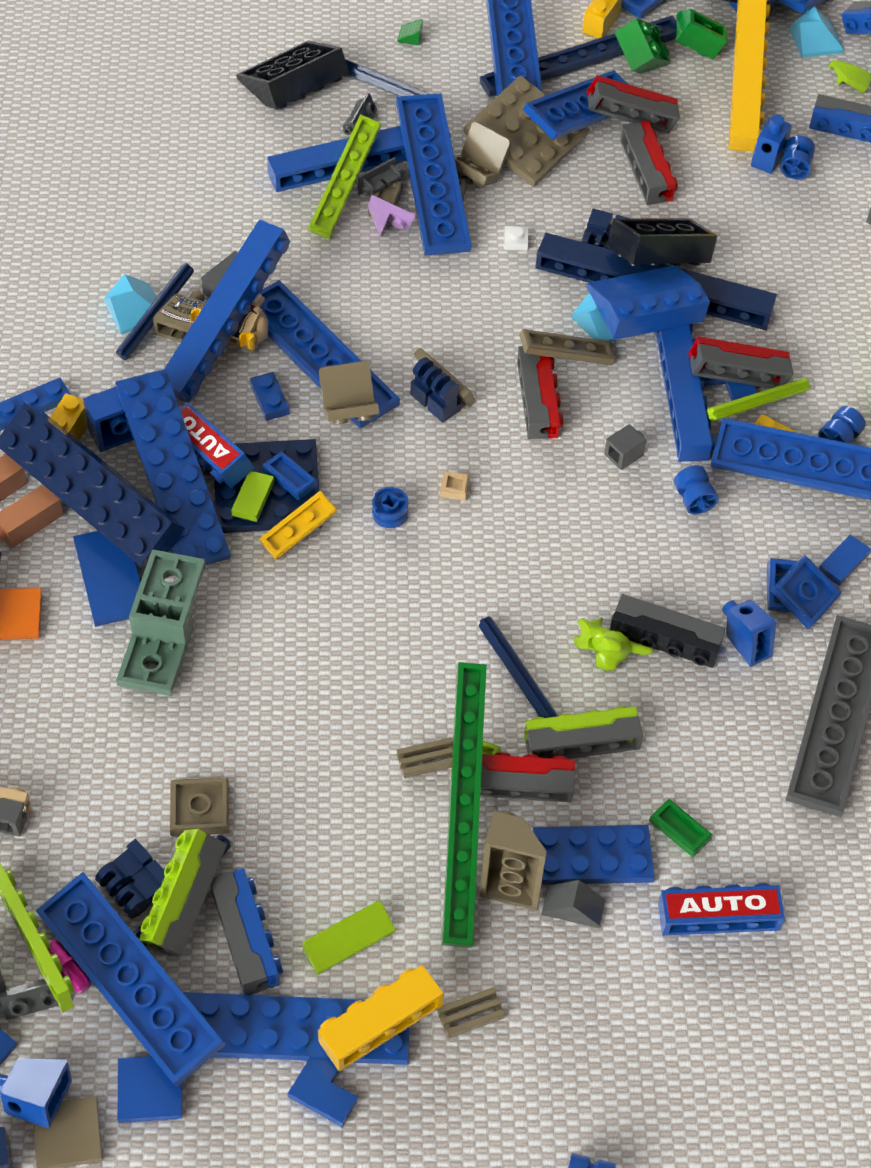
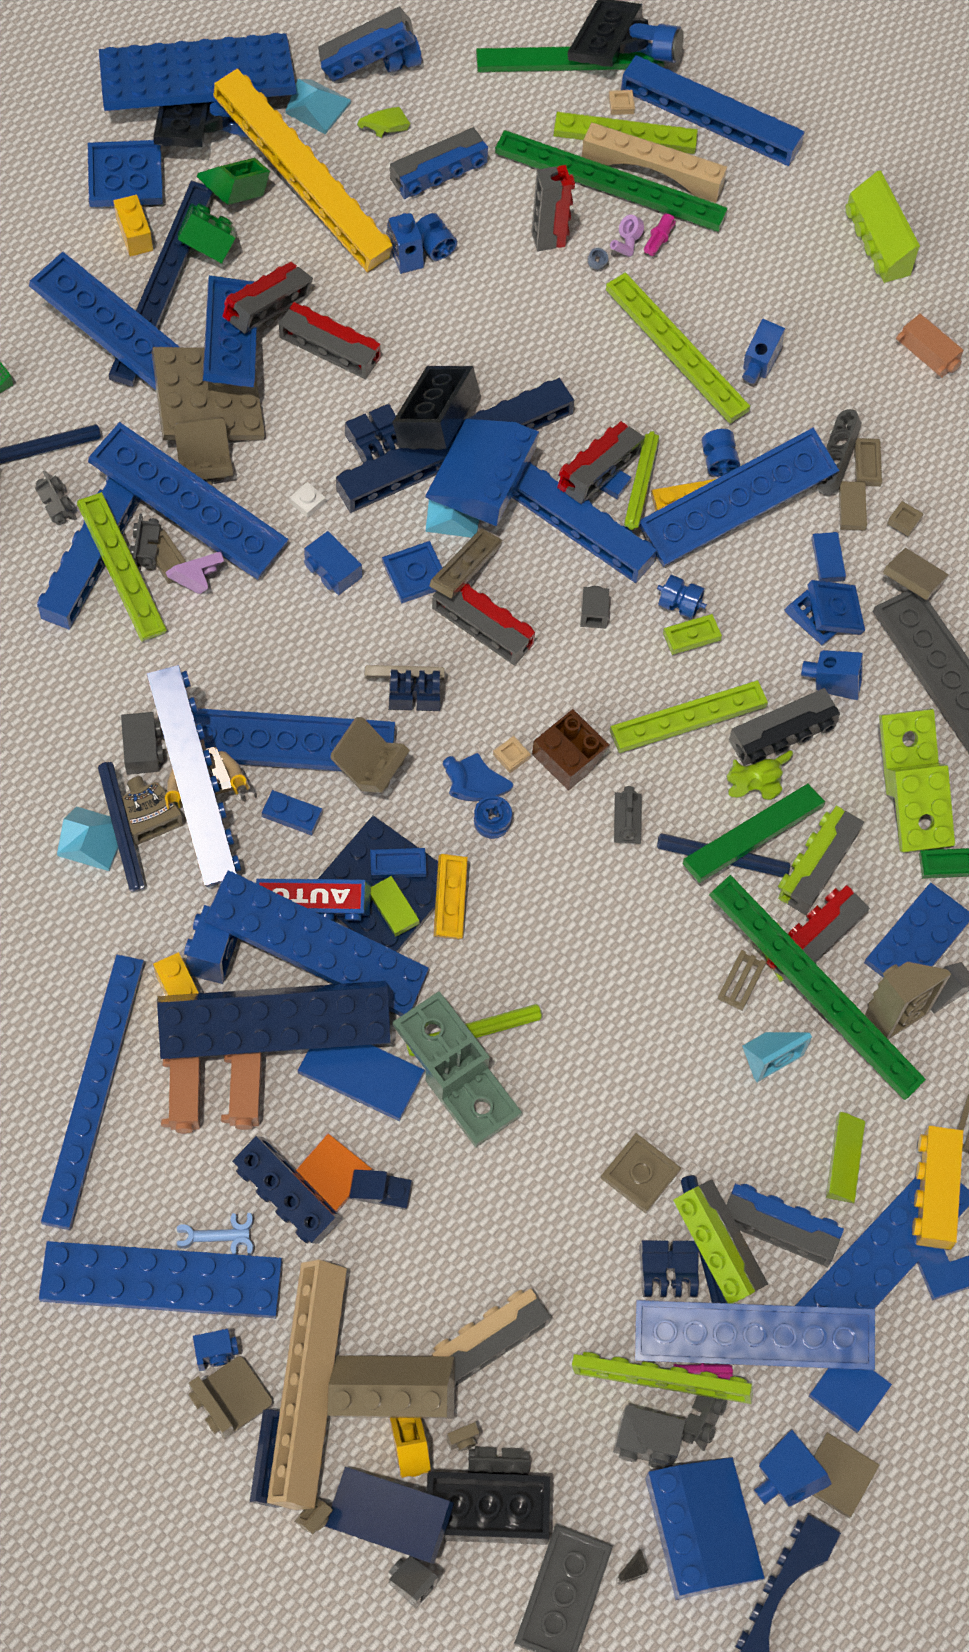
camera: 50 degrees left, 10 degrees up
(26, 649) = (380, 1188): none -> dark blue slope
(230, 627) = (500, 1022): none -> lime axle
(382, 818) = (774, 1051): none -> medium azure slope
(409, 476) = (474, 779): none -> blue arm
(482, 281) = (332, 563): none -> blue brick
(482, 588) = (627, 816): none -> dark grey hinge
(493, 510) = (569, 749): none -> reddish brown slope
(531, 320) = (412, 571): none -> blue tile
(557, 673) = (753, 833): none -> green tile
(606, 566) = (688, 716): none -> lime plate
(675, 520) = (692, 634): none -> lime plate
(719, 746) = (917, 780): none -> lime bracket

